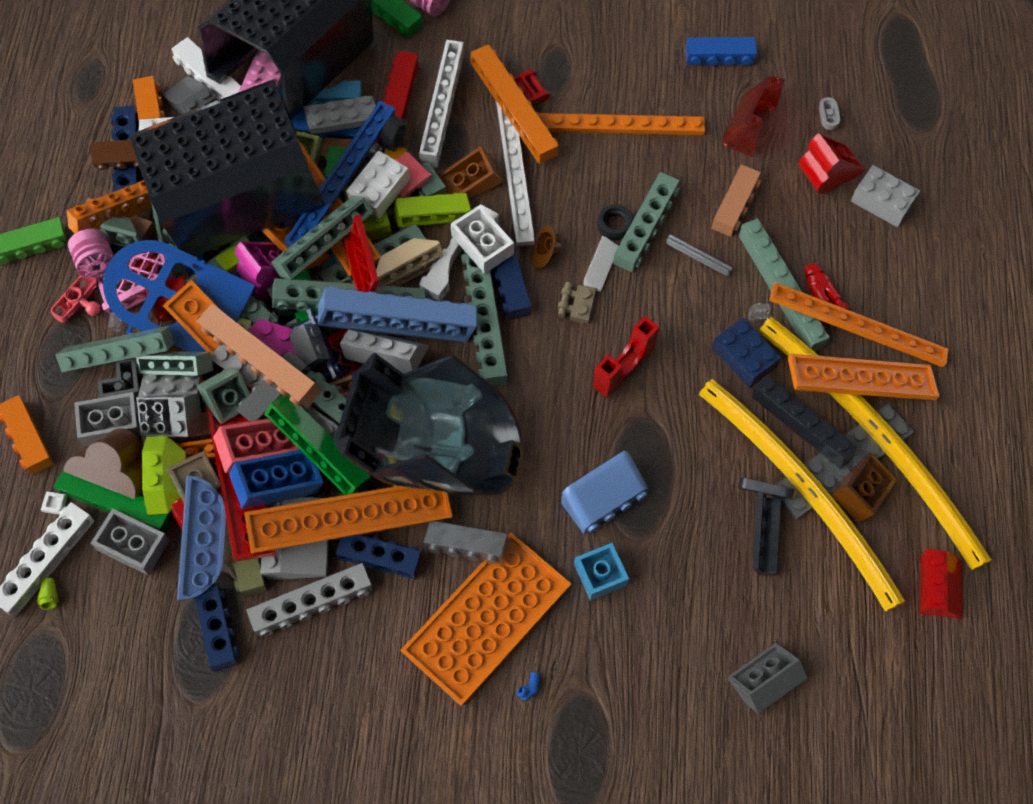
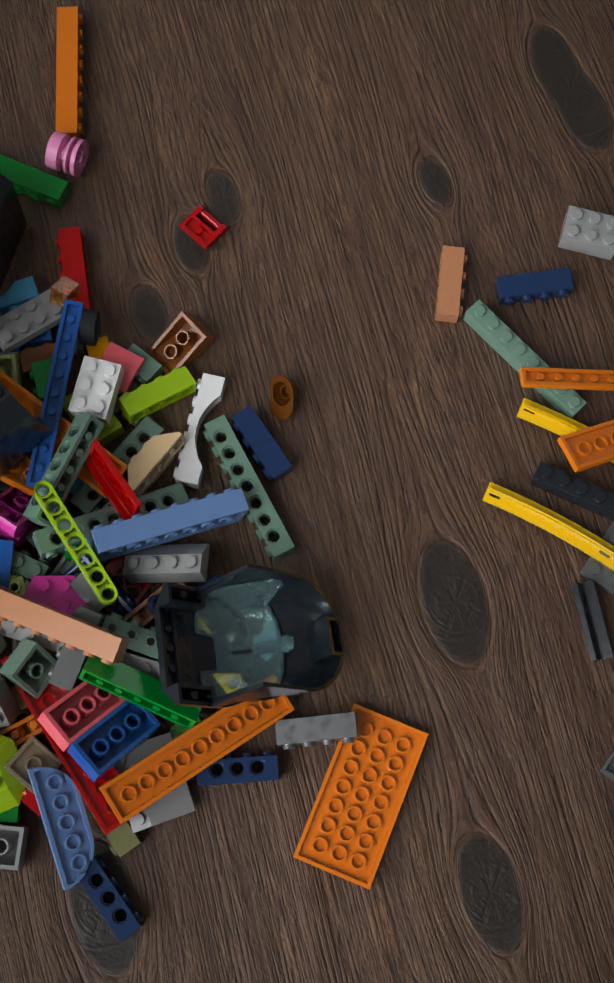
camera: 20 degrees left, 10 degrees up
(279, 605) = (146, 872): light grey brick -> none
(307, 304) = (74, 533): none -> lime beam
(382, 94) = (64, 289): none -> clear orange brick
(441, 103) = (124, 273): white brick -> none
(482, 239) = (221, 413): white brick -> none
(514, 104) = (197, 251): orange brick -> none
(516, 181) = (221, 320): white plate -> none
(530, 689) = (426, 848): blue arm -> none
(582, 304) = (338, 440): dark tan plate -> none
(600, 264) = (342, 395): white slope -> none
(601, 571) = (453, 713): dark azure brick -> none
(604, 492) = (429, 634): medium blue windscreen -> none
(613, 372) = (403, 489): red arch -> none
(618, 210) = (340, 332): black tyre -> none
(624, 124) = (305, 237): orange plate -> none
(629, 259) = (362, 380): sand green brick -> none
(699, 255) = (432, 353): dark grey axle -> none
(720, 50) = (380, 124): blue brick -> none
(745, 126) = (431, 206): clear red windscreen -> none
(746, 352) = (512, 442): dark blue brick -> none
(759, 311) = (510, 394): clear plate -> none
(767, 488) = (577, 576): black beam -> none
(815, 225) = (534, 286): none -> dark blue brick
(821, 284) = (558, 347): red piece -> none
(829, 115) = (509, 160): light grey plate -> none
(829, 163) = (528, 217): red brick -> none

